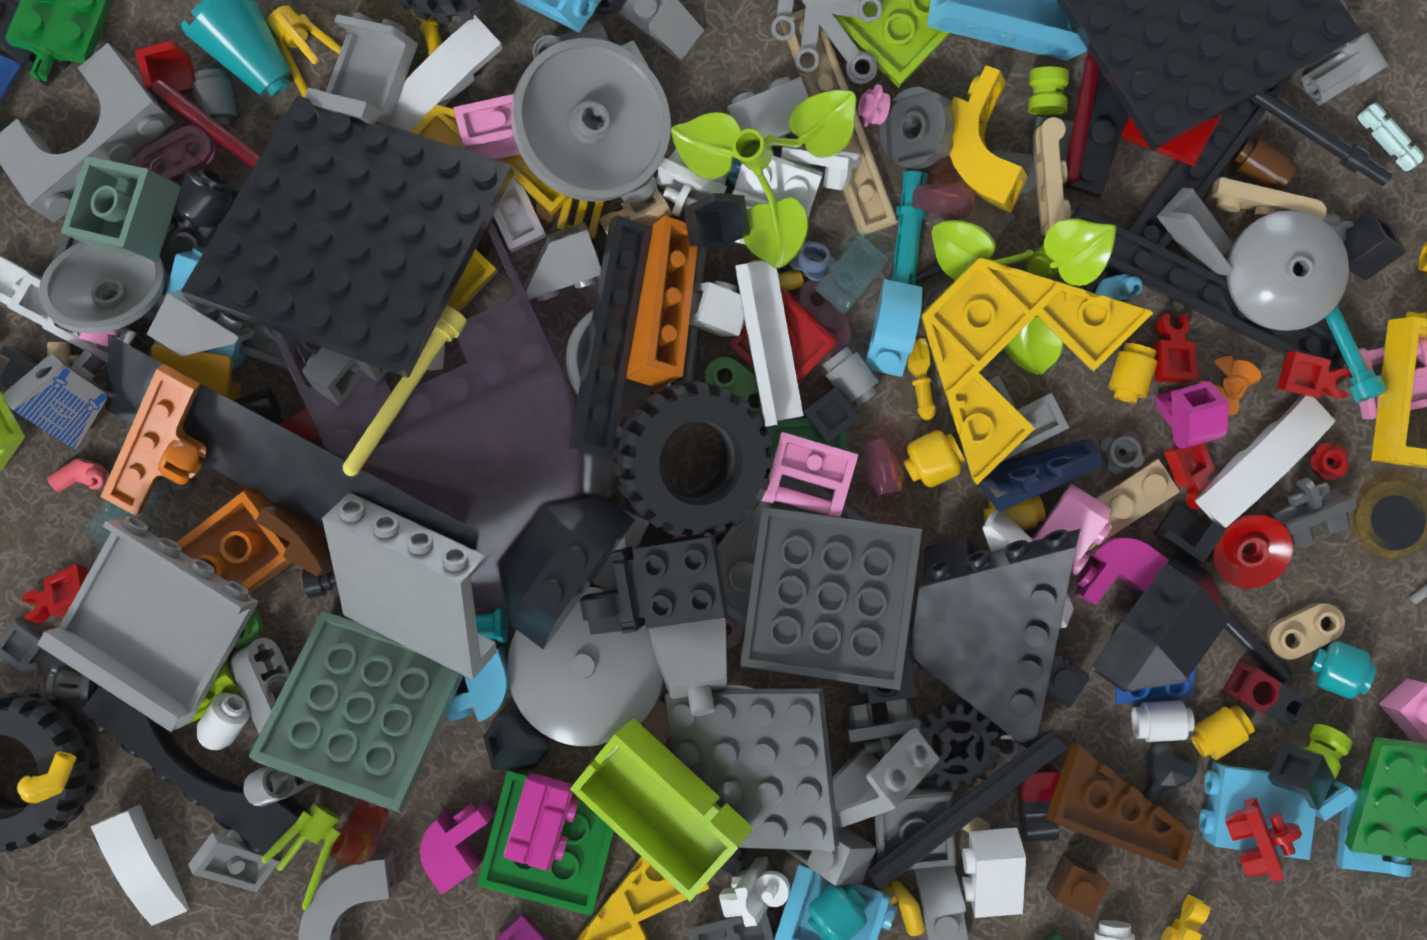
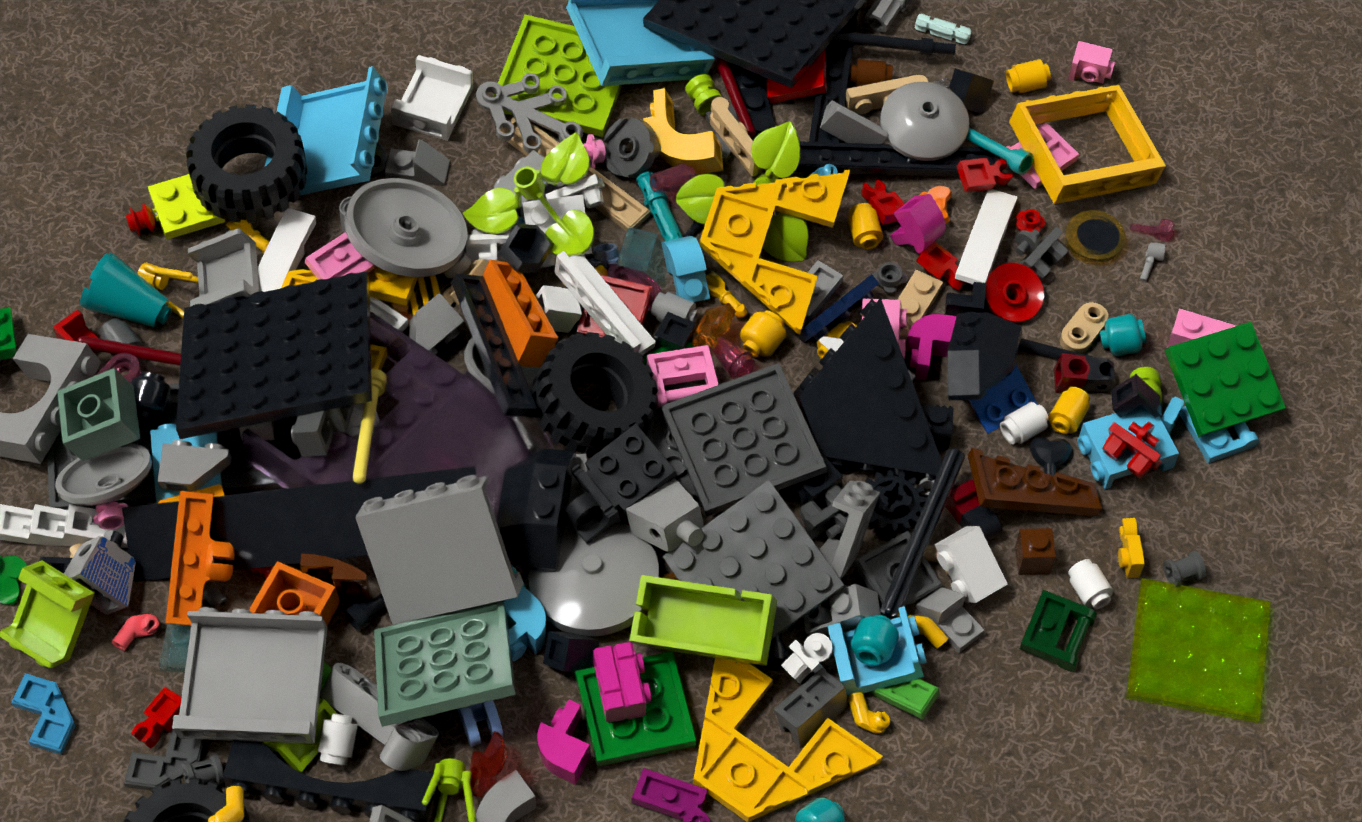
camera: 30 degrees left, 30 degrees down
(882, 419) = (714, 324): none -> clear orange plate

